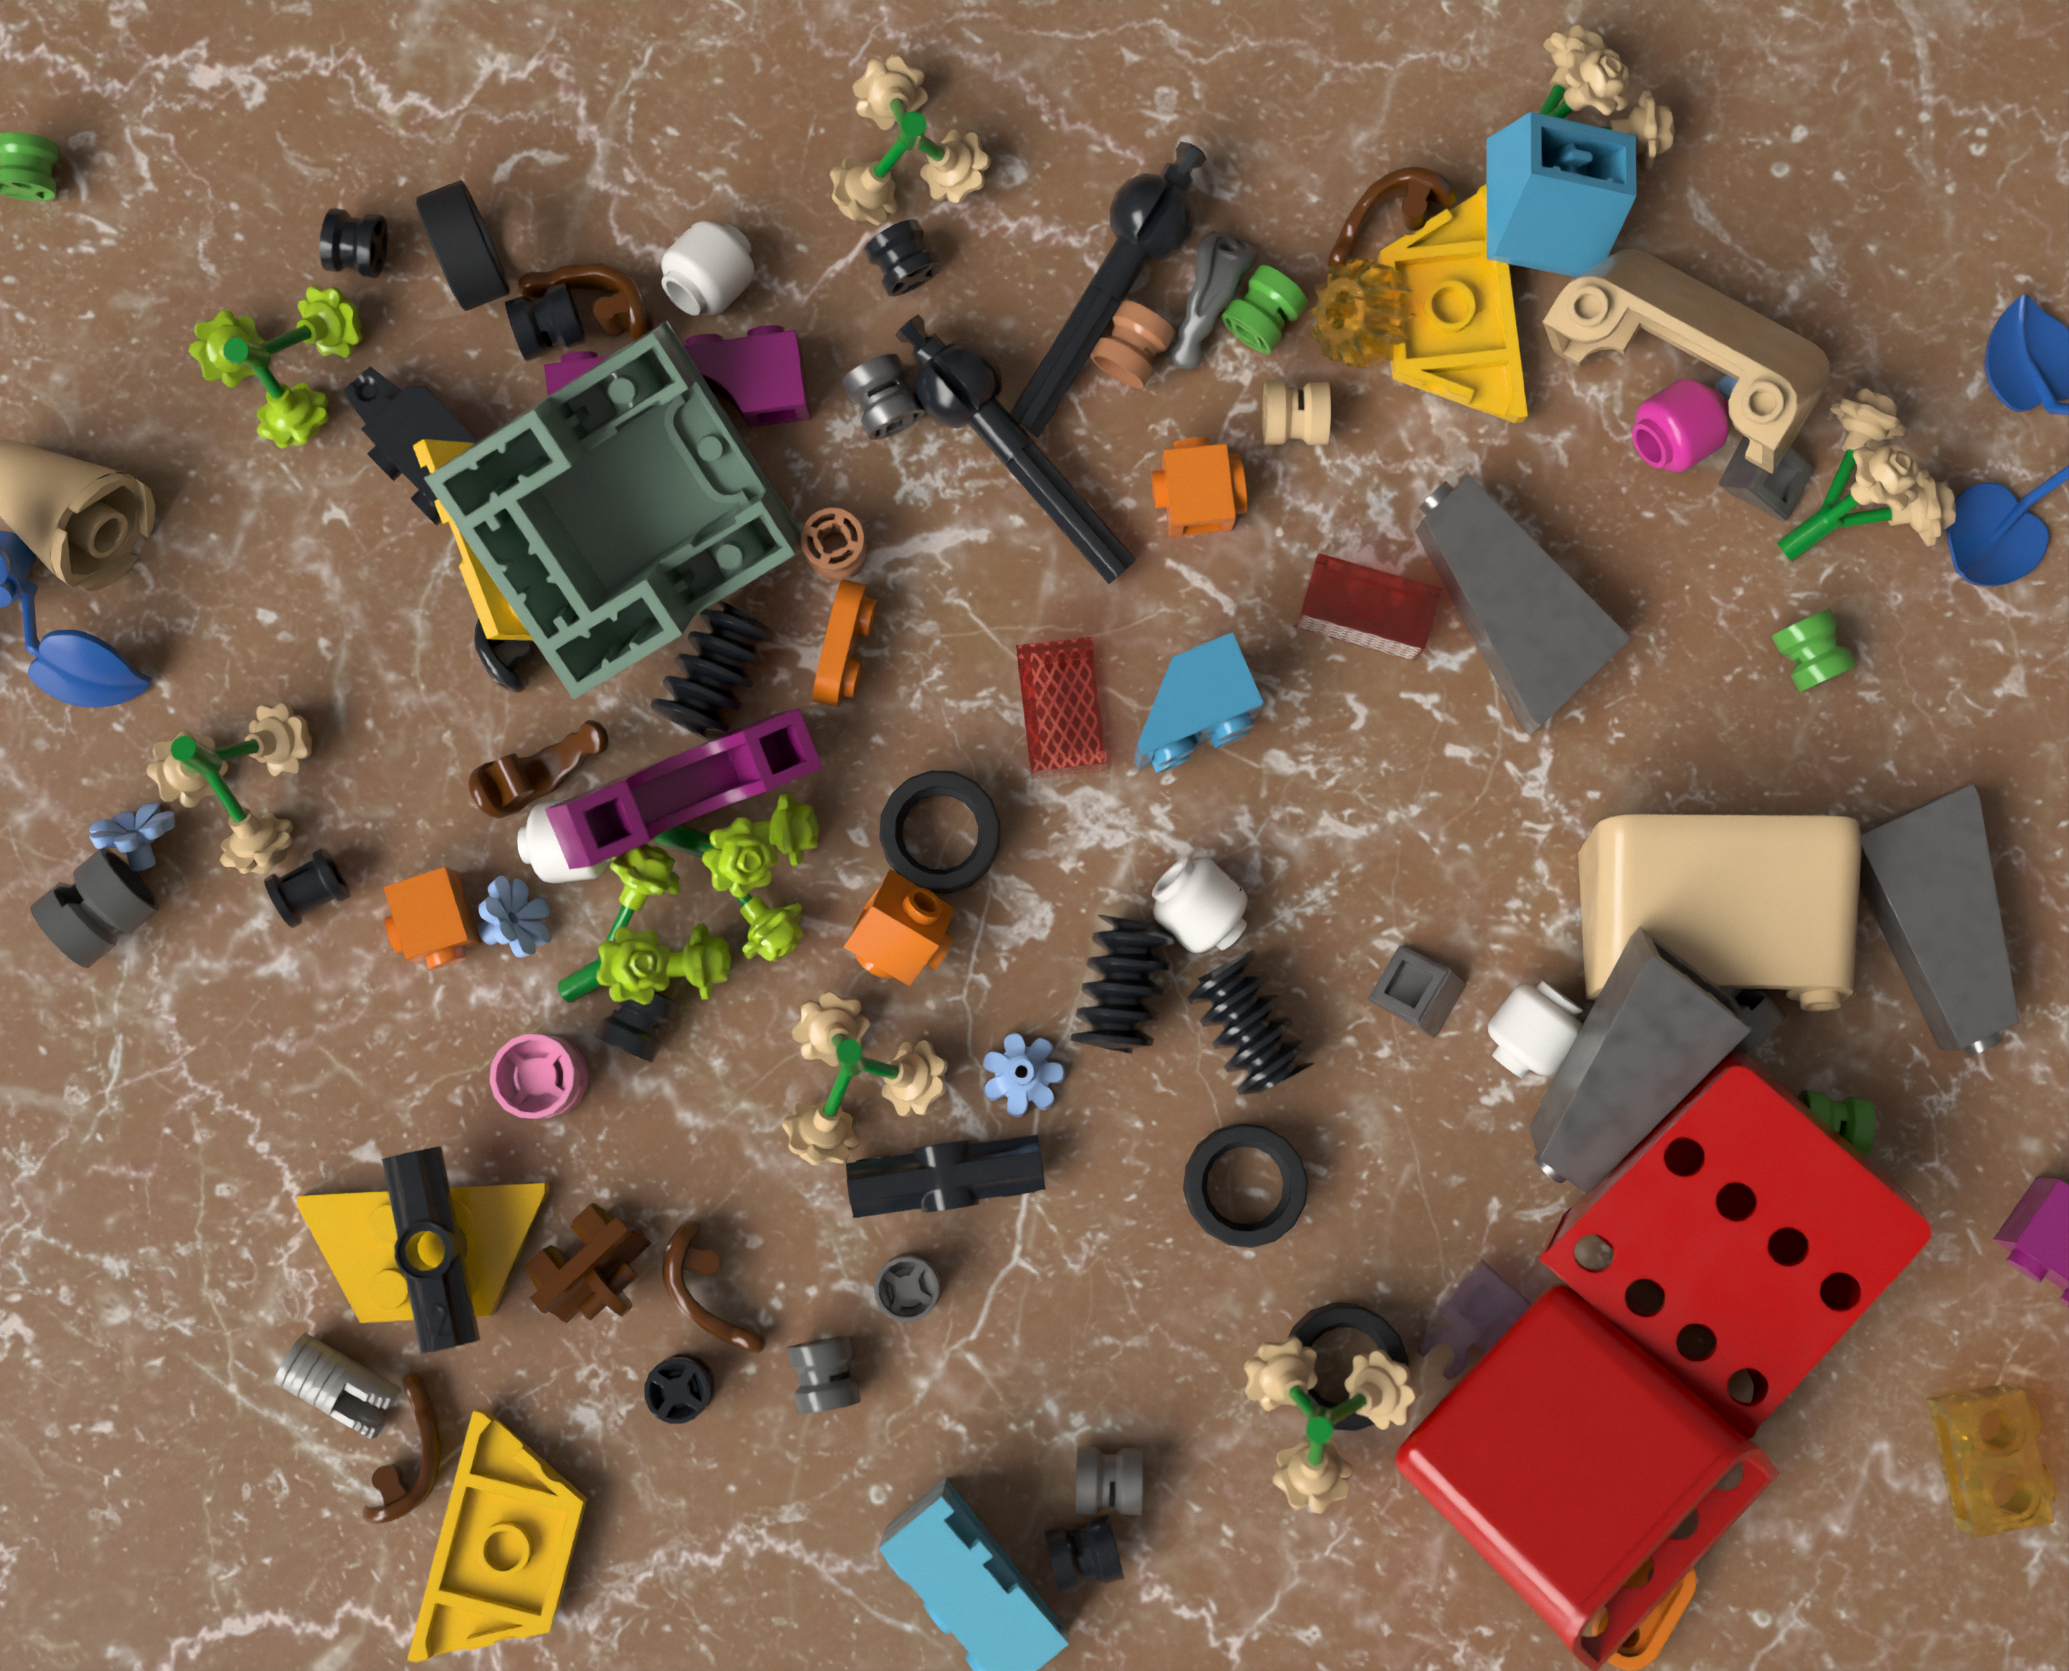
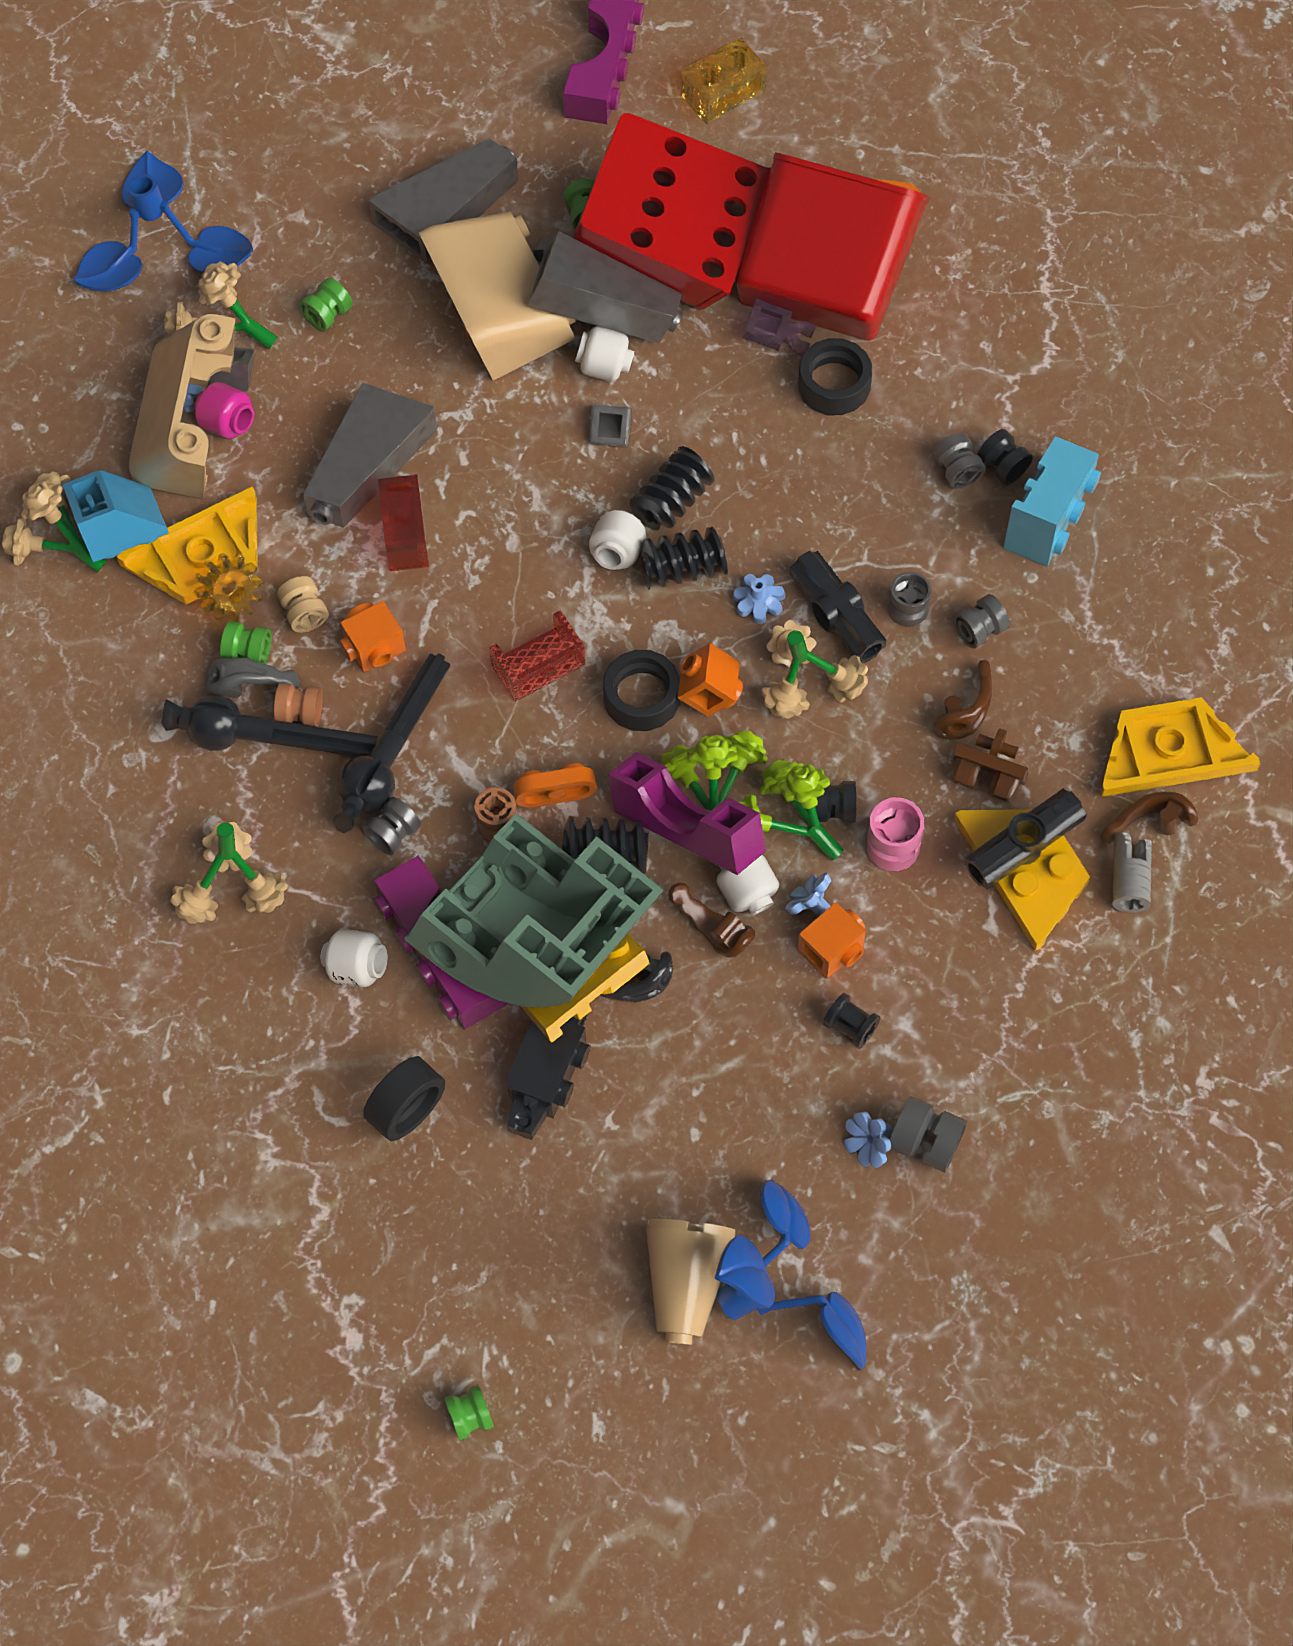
camera: 115 degrees left, 20 degrees down
(196, 770) = (813, 1121): tan plant -> none
(236, 351) = (556, 1163): lime plant -> none
(353, 242) = (429, 1177): black wheel -> none
(545, 321) = (428, 1036): black wheel -> none
(615, 314) = (397, 992): reddish brown piece -> none
(672, 1398) = (1034, 683): black wheel -> none
(902, 257) = (298, 851): black wheel -> none
(1200, 700) = (504, 578): dark azure slope -> none
(1293, 1192) = (767, 435): black tyre -> none
(1313, 1468) = (840, 340): tan plant -> none
(1418, 187) = (142, 592): reddish brown piece -> none

